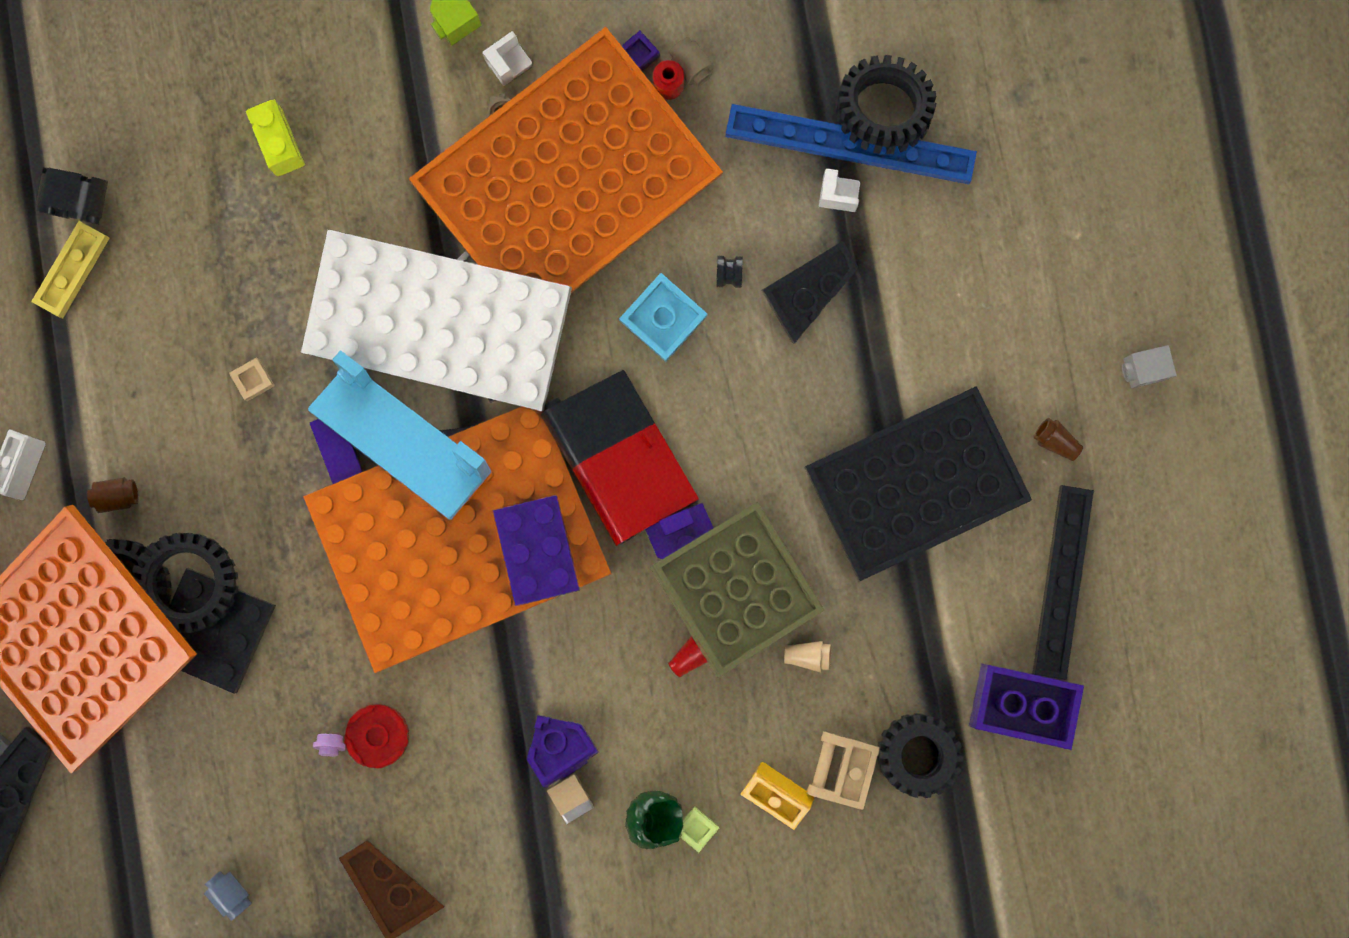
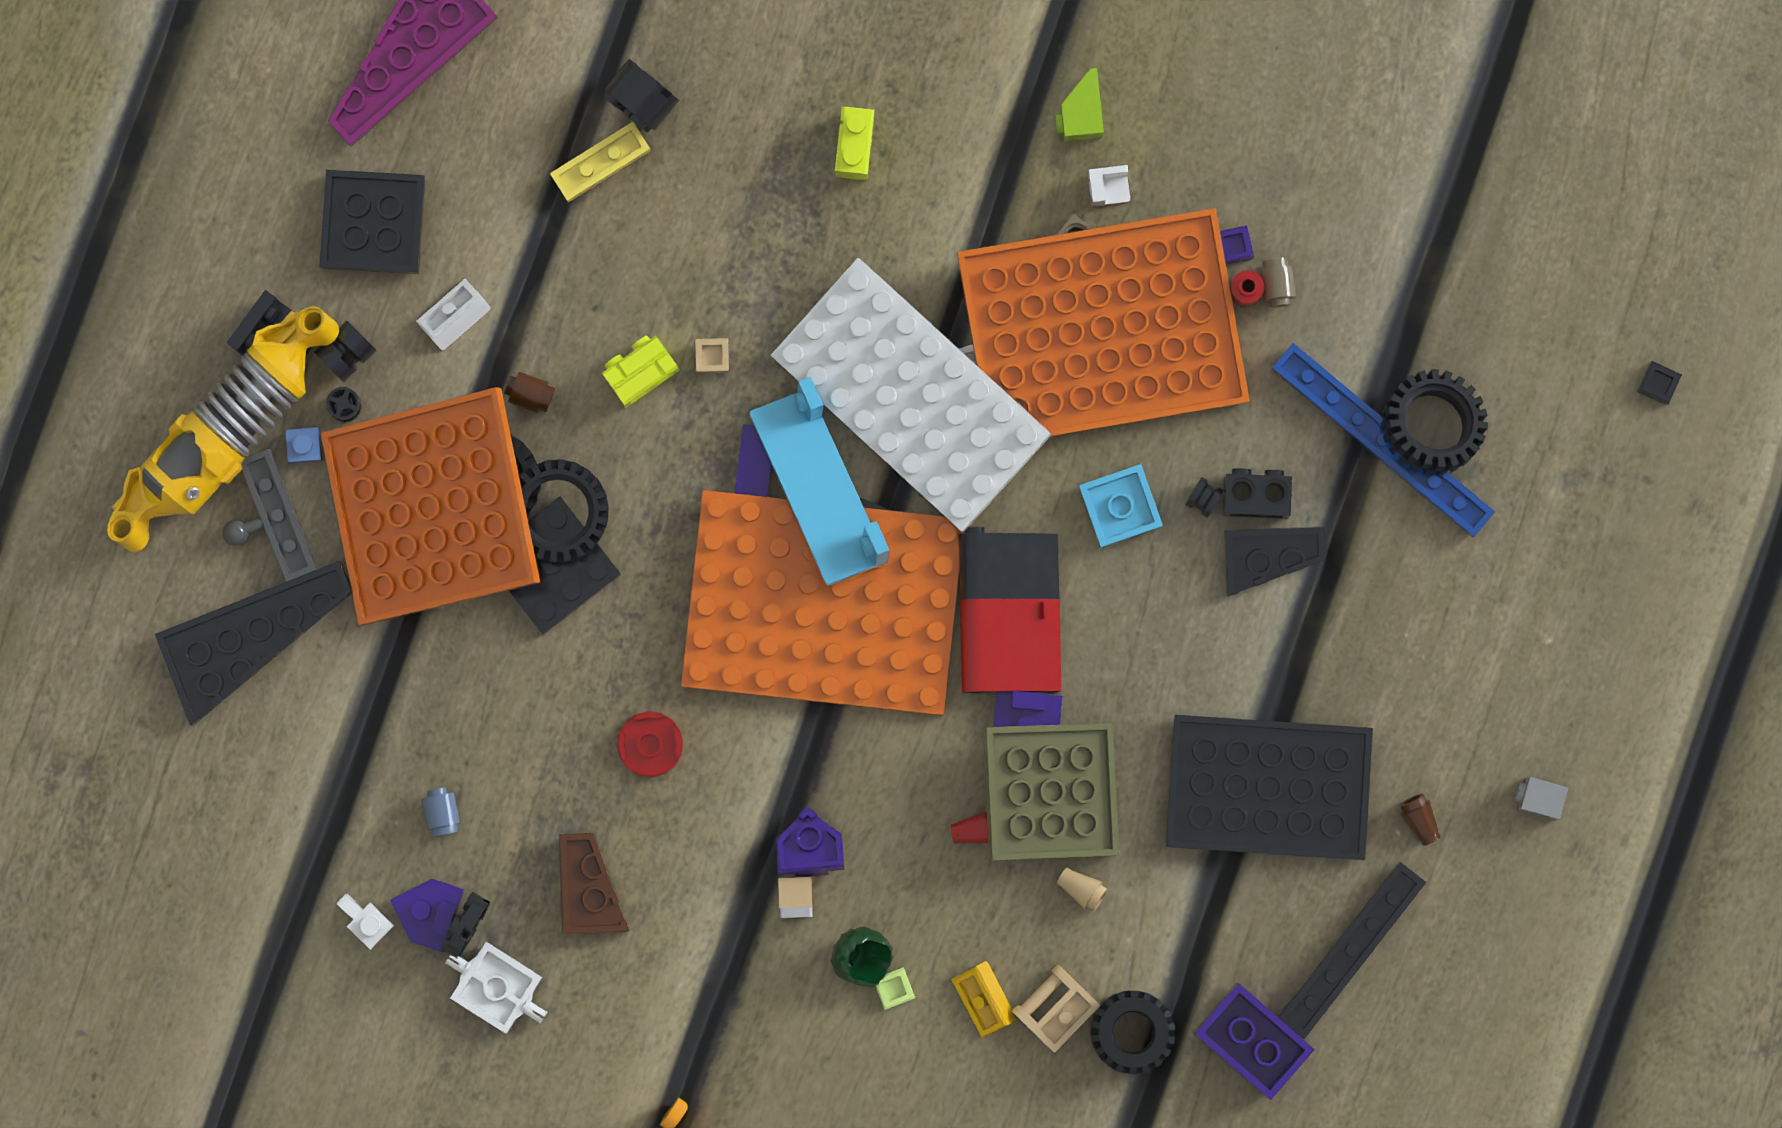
camera: 25 degrees right, 0 degrees up
(196, 425) = (640, 370): none -> neon yellow brick
(329, 744) = (604, 728): lavender plate -> none
(536, 550) = (889, 656): dark purple brick -> none
(776, 251) = (1257, 504): none -> black brick
(839, 192) = (1347, 479): white panel -> none

